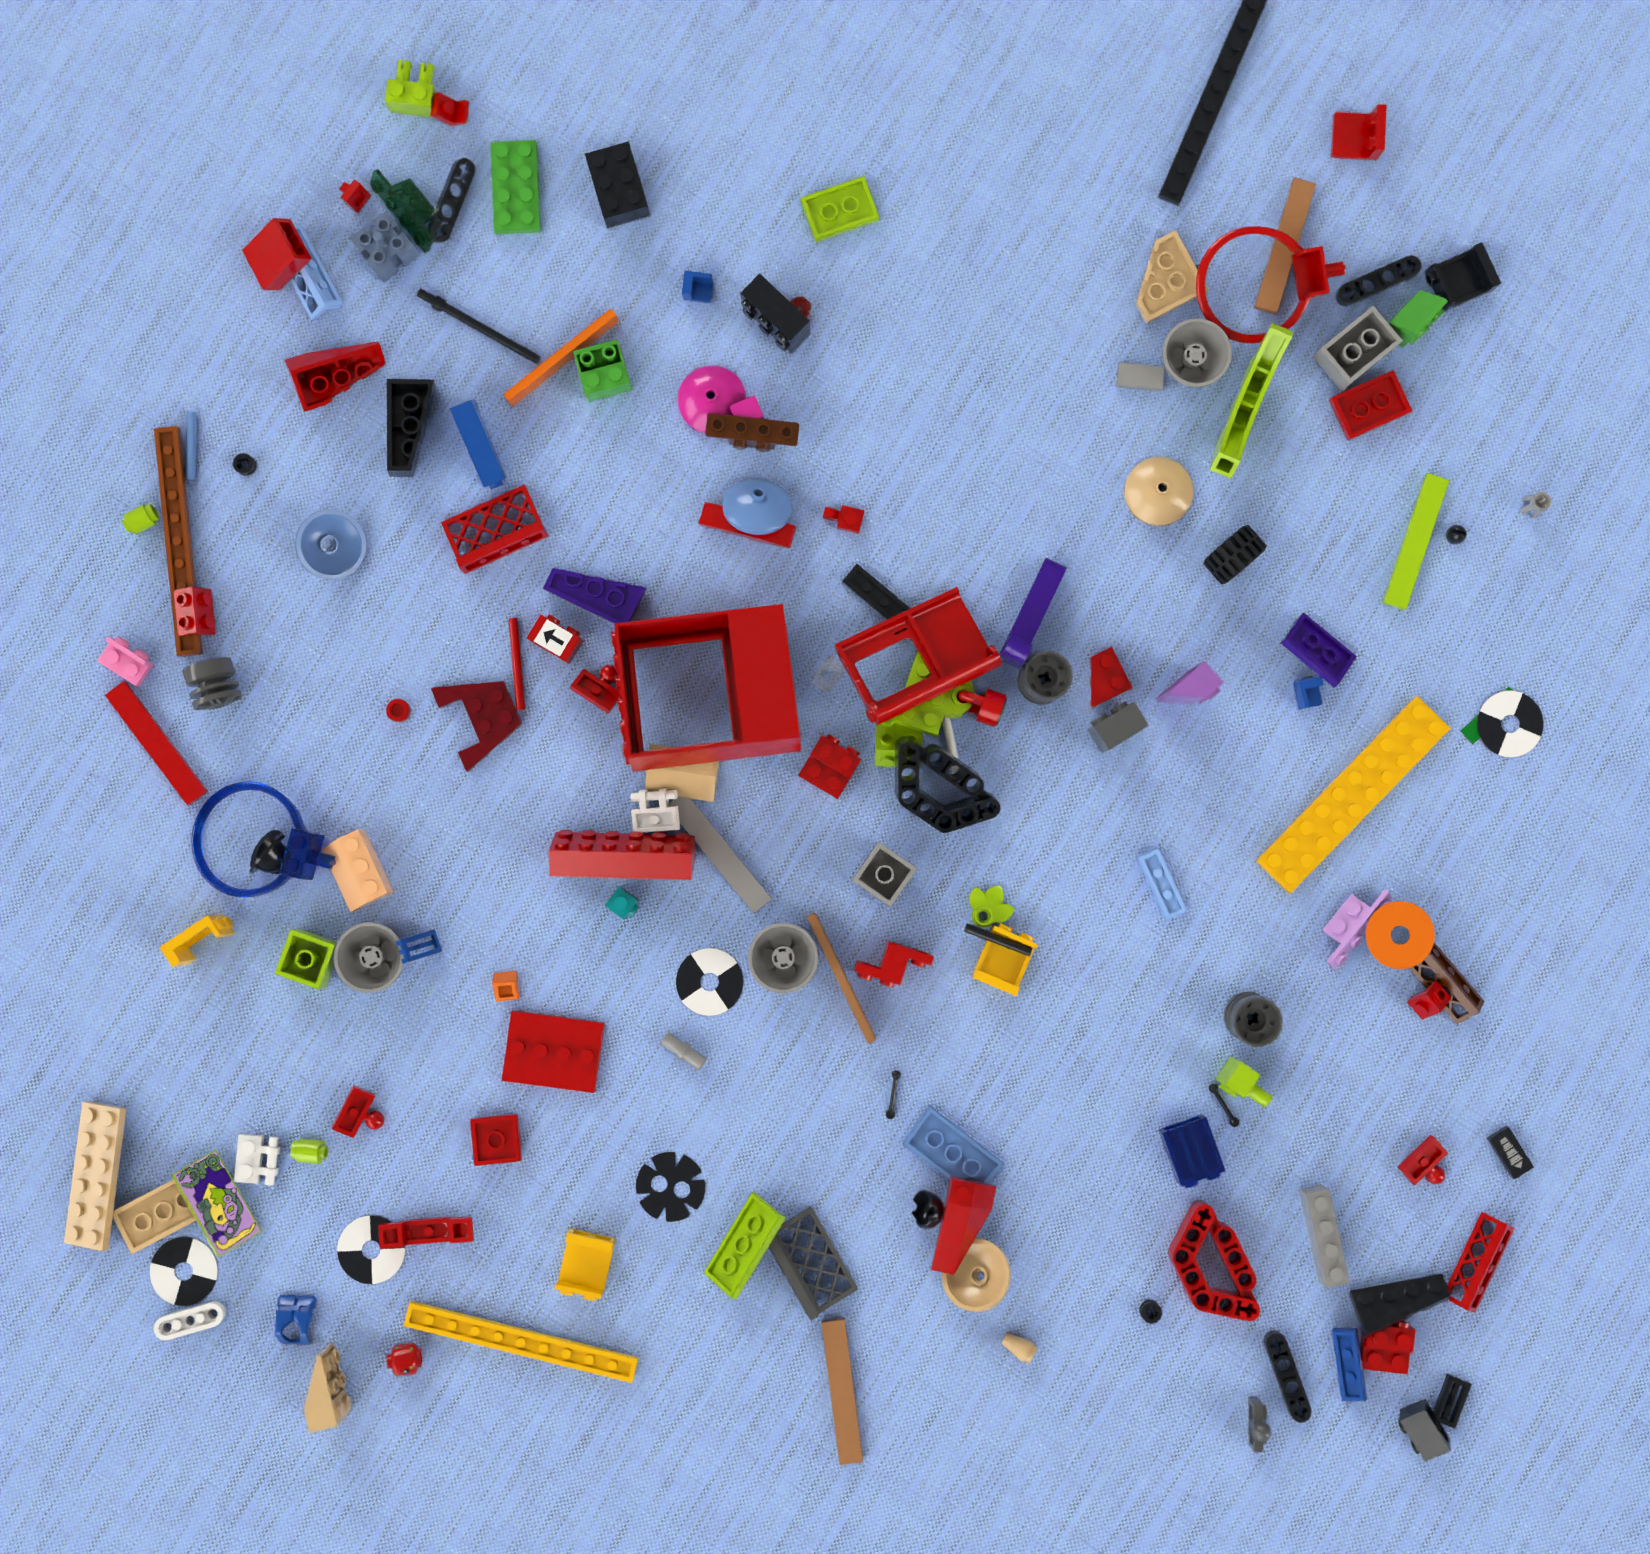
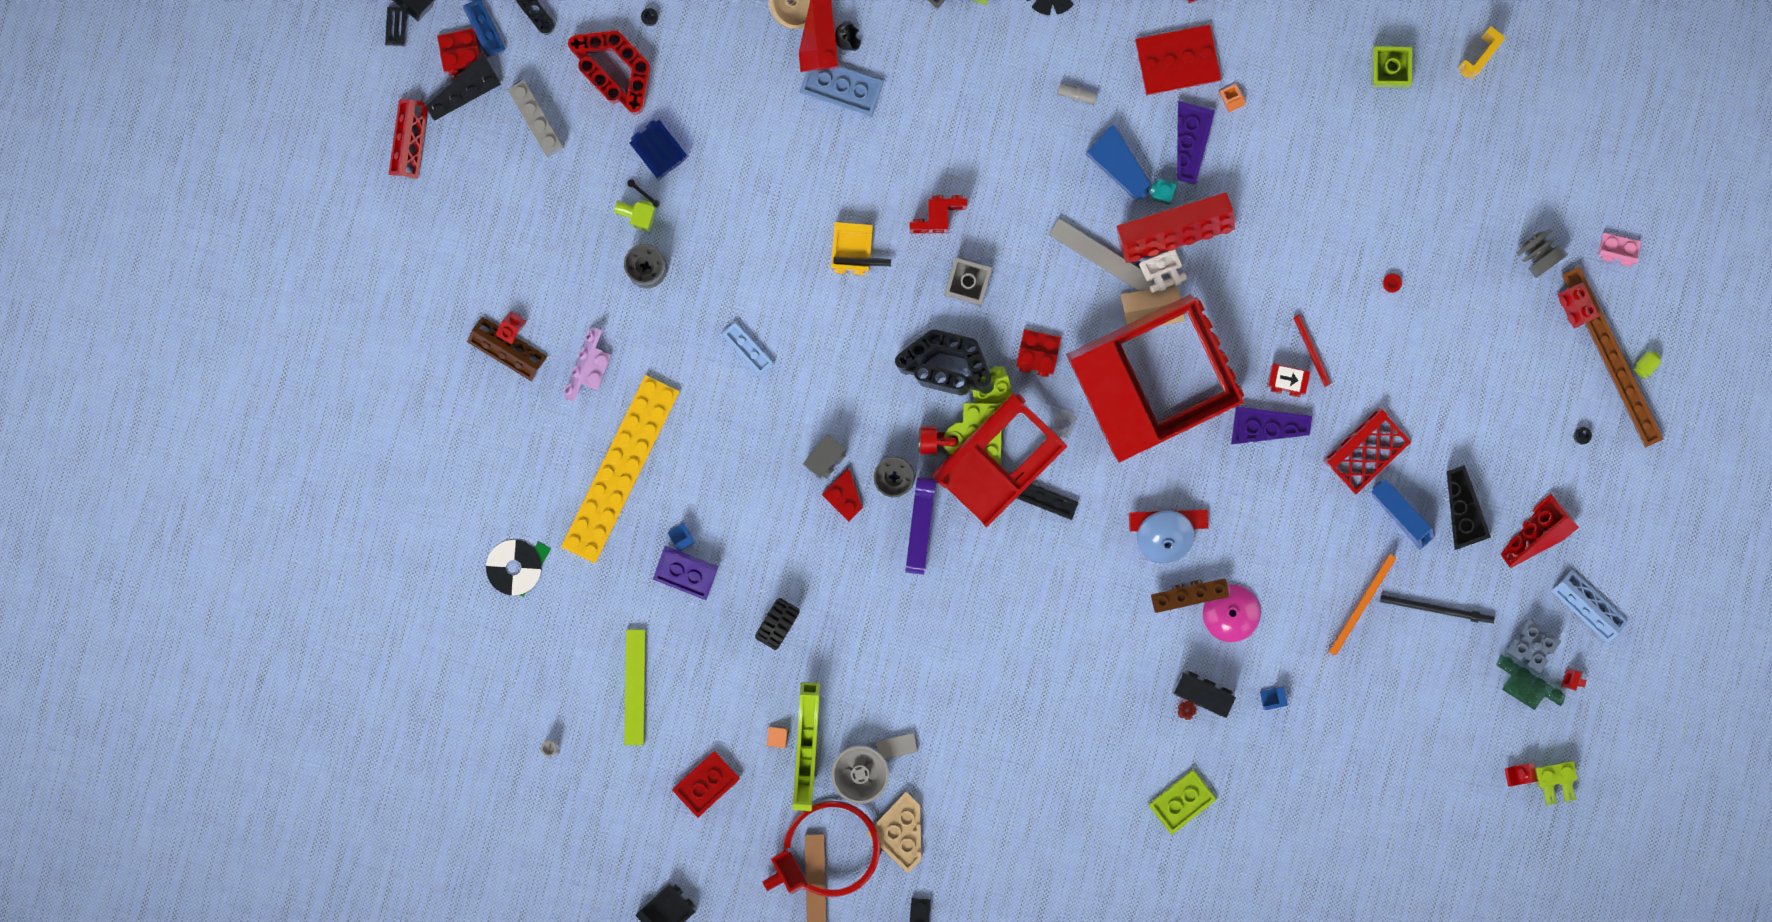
camera: 165 degrees right, 0 degrees up
(156, 743) = (1571, 193): red tile -> none
(191, 446) = (1630, 436): medium blue bar -> none
(268, 853) = (1450, 137): black helmet -> none
(276, 254) = (1614, 608): red brick -> none
(300, 855) = (1426, 144): clear blue brick -> none
(346, 547) = (1478, 393): medium blue dish -> none
(358, 870) = (1379, 147): light nougat slope -> none
(358, 951) = (1344, 73): light grey piece -> none
(405, 950) = (1317, 98): blue tile -> none
(448, 199) = (1490, 702): black beam -> none
(489, 711) = (1319, 305): dark red wing -> none
(515, 187) = (1447, 732): bright green plate -> none
(566, 957) = (1192, 137): none -> dark purple wing
(597, 690) = (1242, 351): red plate -> none
(602, 370) = (1325, 604): bright green slope -> none
(617, 184) = (1365, 759): black brick -> none
(663, 955) = (1118, 163): none -> blue slope
(709, 961) = (1058, 154): sticker -> none
(747, 408) = (1199, 611): dark pink panel -> none
(792, 973) = (1028, 180): light grey piece -> none
(841, 977) = (974, 191): medium nougat tile -> none
(848, 518) = (1090, 553): red plate -> none
(890, 1114) = (900, 100): black hinge -> none
(950, 741) = (951, 405): white bar -> none
(992, 904) = (876, 288): lime plate -> none
(1151, 504) = (865, 654): tan dish -> none
(1194, 686) = (778, 506): medium lavender slope -> none
(1271, 431) = (777, 737): none -> orange slope
(1357, 348) = (732, 824): light grey brick -> none
(1378, 281) = (729, 886): black beam -> none
(1400, 955) = (536, 374): orange sticker -> none
(1417, 316) = (696, 864): bright green slope -> none
(1424, 1161) = (475, 202): red plate -> none
(1456, 538) = (604, 700): black hinge -> none
(1510, 1152) = (409, 231): tile -> none

